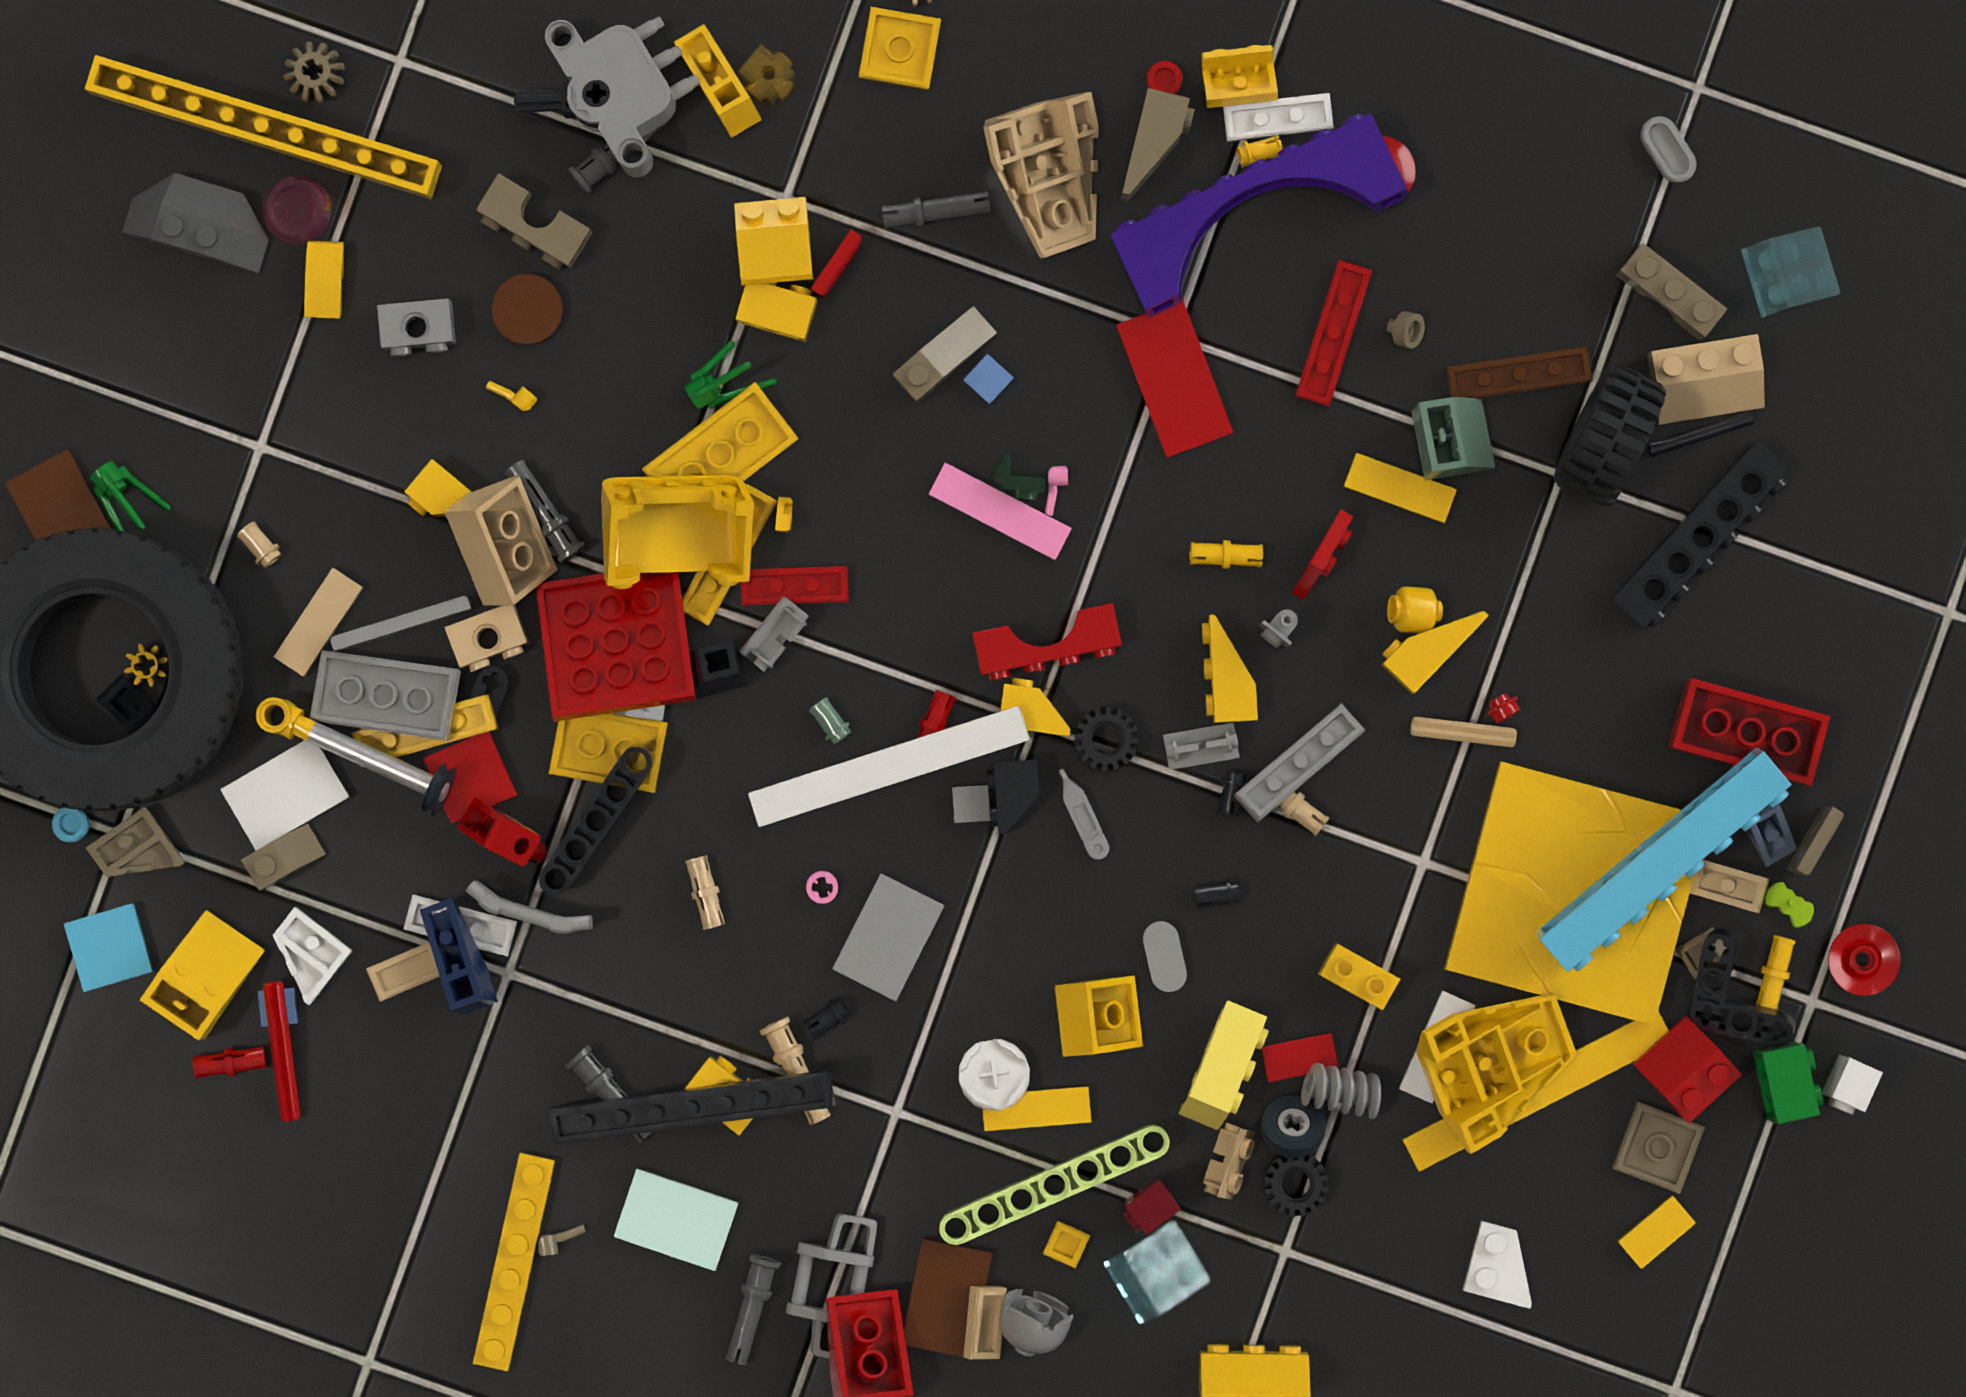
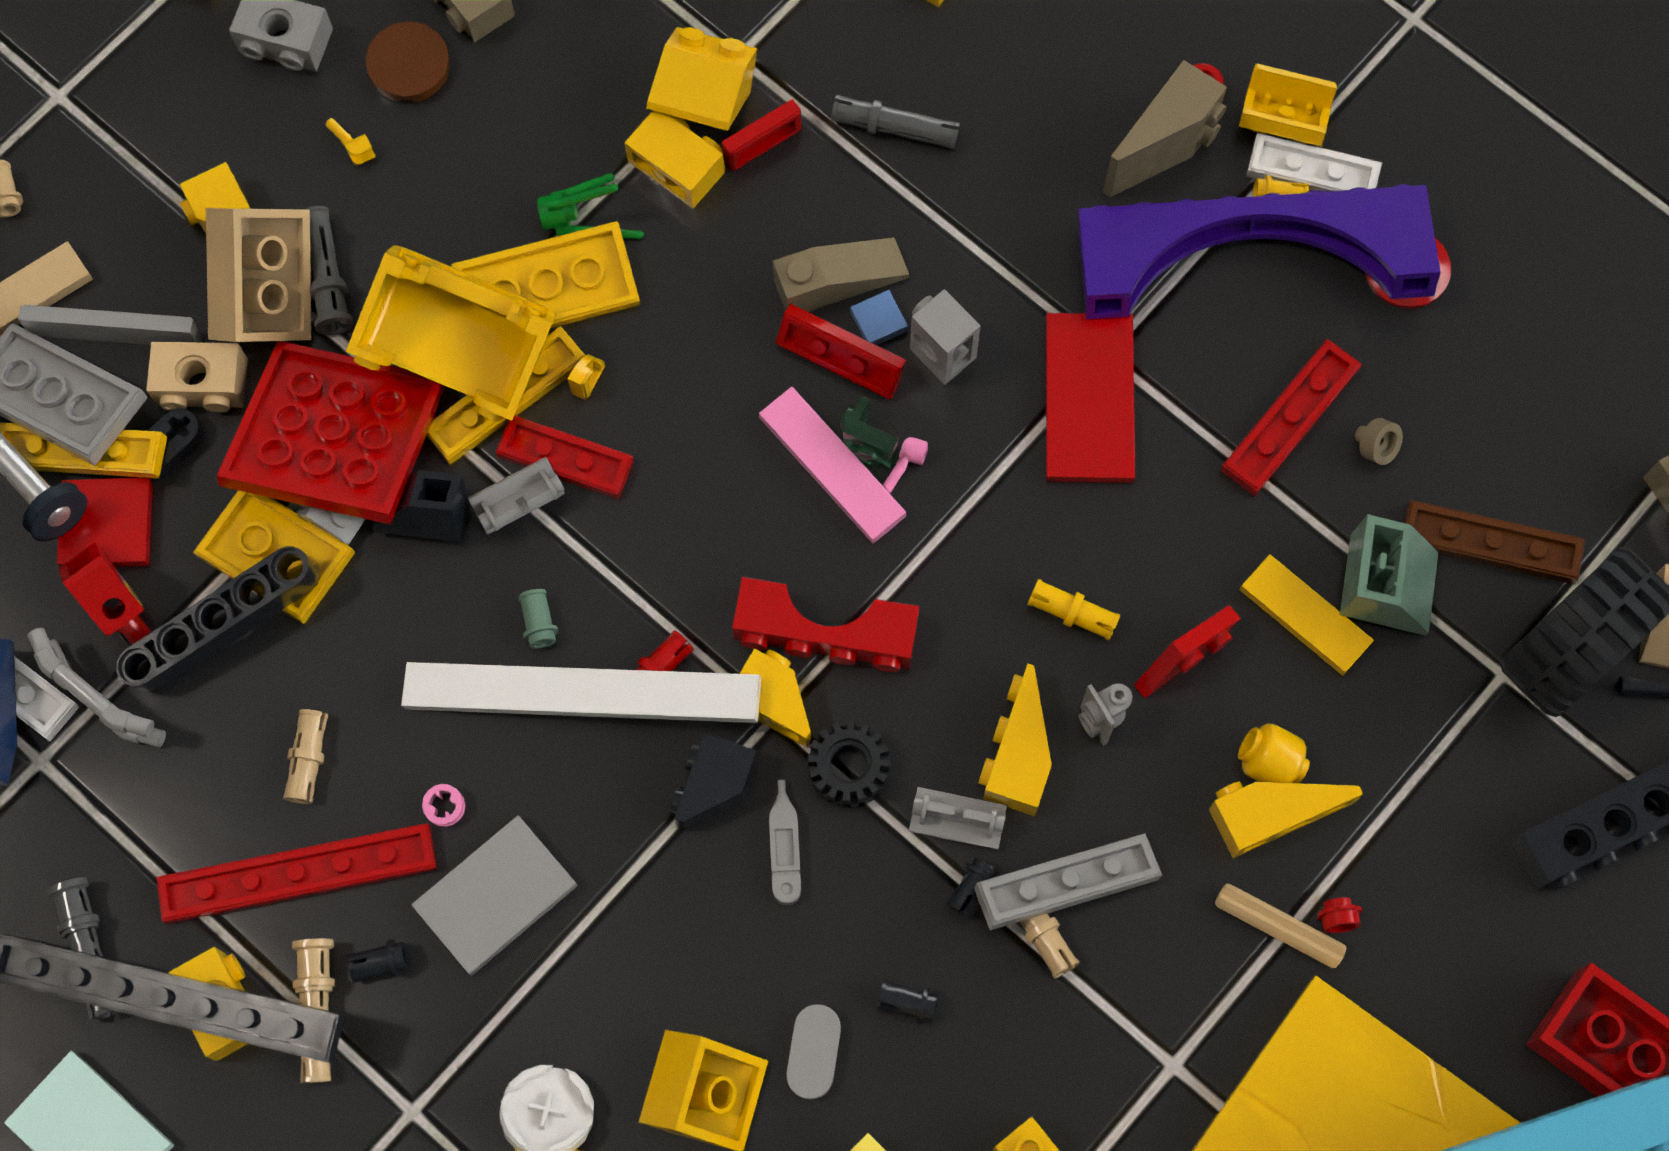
camera: 20 degrees right, 15 degrees down
(737, 979) = (296, 873): none -> red tile
(971, 420) = (840, 351): none -> red tile
(971, 804) = (658, 777): light grey tile -> none
(1046, 381) = (943, 335): none -> light grey brick
(1048, 169) = (1036, 118): tan wedge -> none

